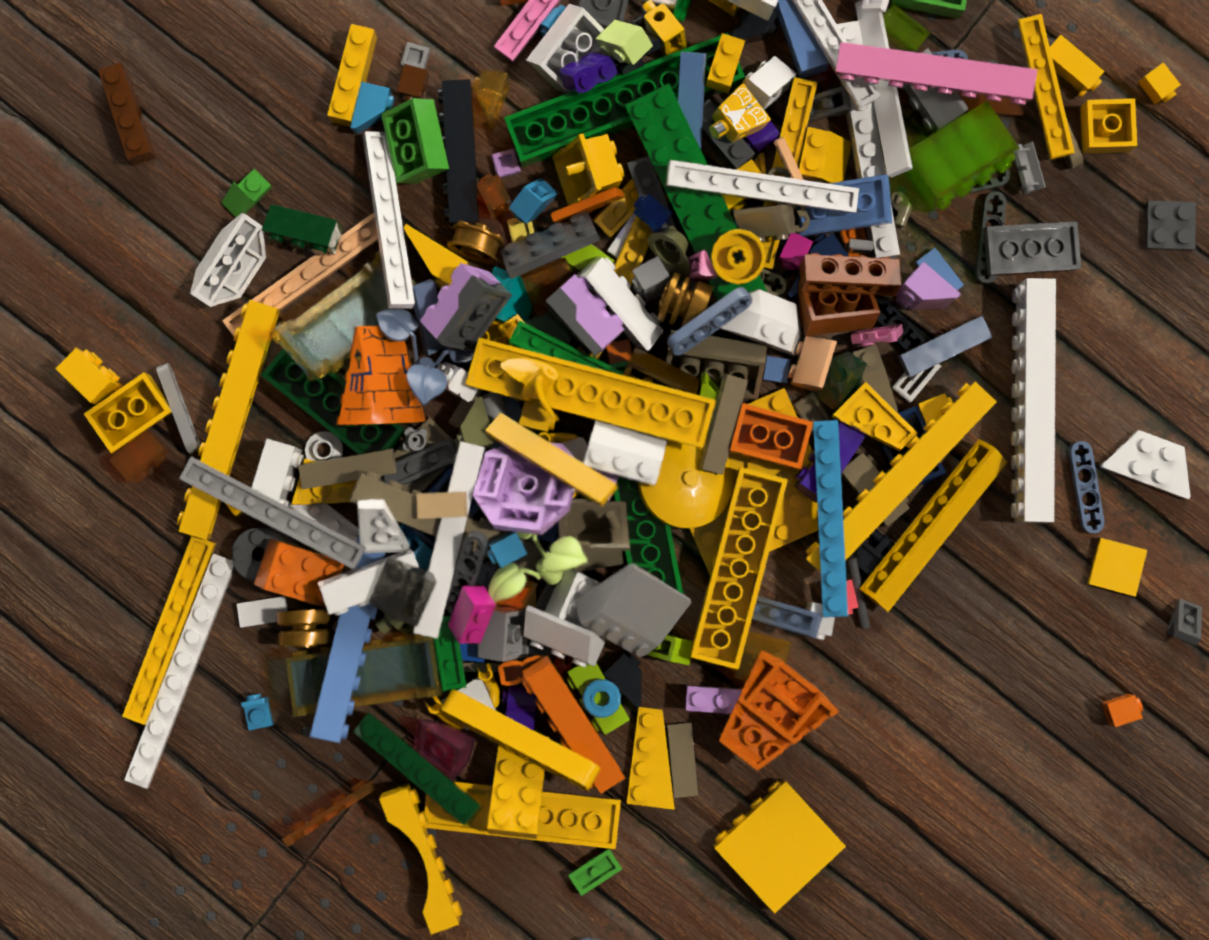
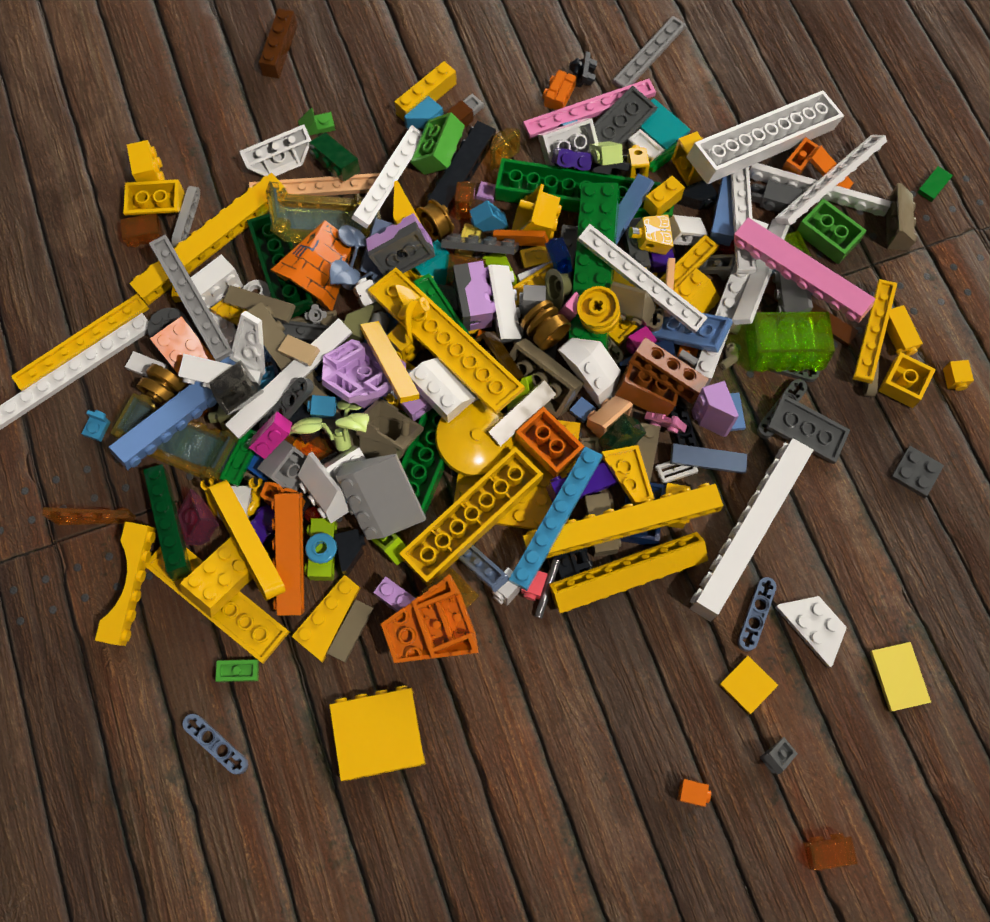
camera: 35 degrees right, 15 degrees down
(730, 305) = (553, 341): sand blue beam -> none
(1029, 169) = (834, 377): light grey hinge -> none

